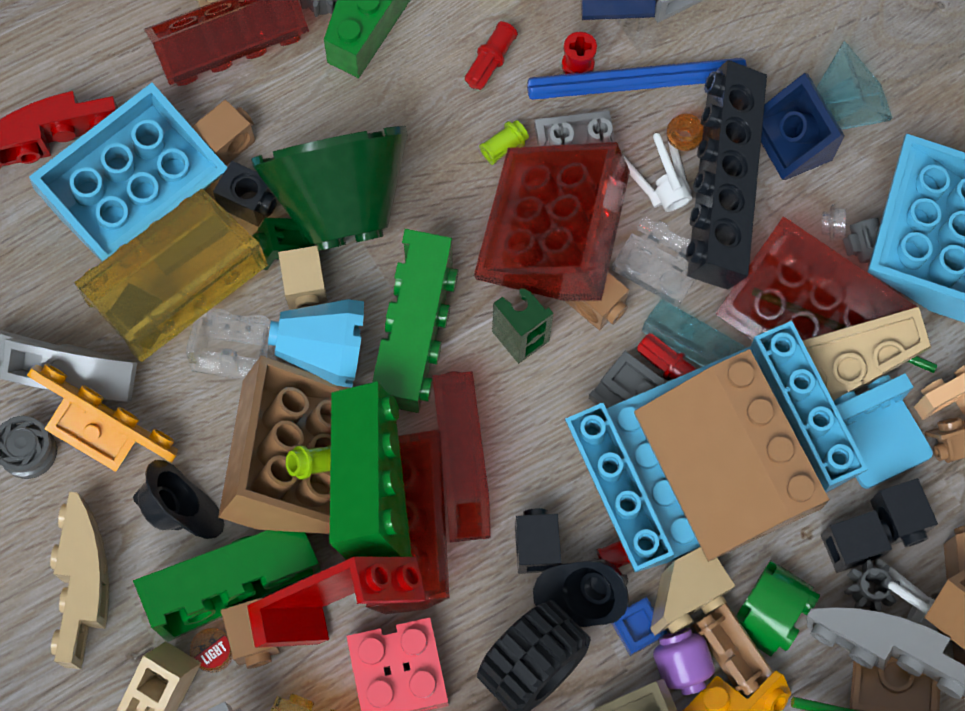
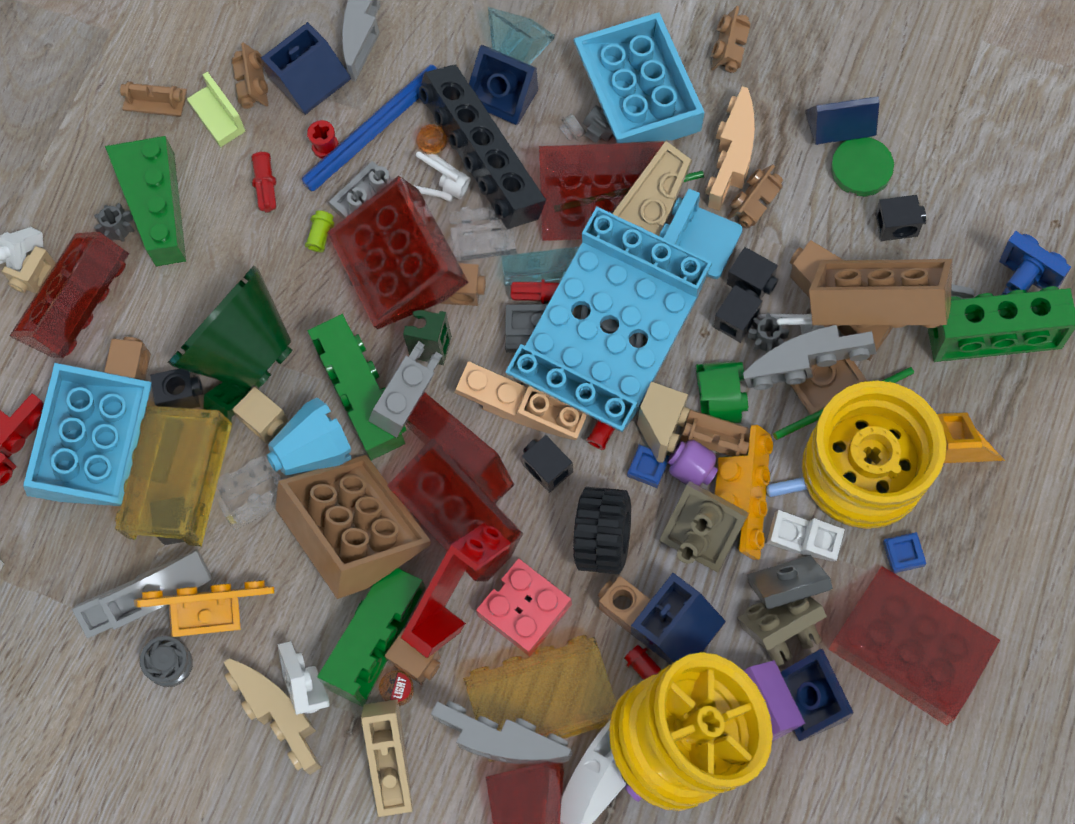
camera: 30 degrees left, 0 degrees up
(114, 583) = (301, 683): none -> white bracket
(176, 503) = (297, 617): black piece -> none
(305, 461) = (365, 521): lime pin -> none
(366, 475) = (410, 496): green wedge -> none
(449, 361) = (404, 392): none -> light grey hinge
(558, 459) = (519, 403): none -> light nougat slope
(587, 591) = (602, 465): black piece -> none
(730, 456) = (624, 316): medium nougat slope -> none

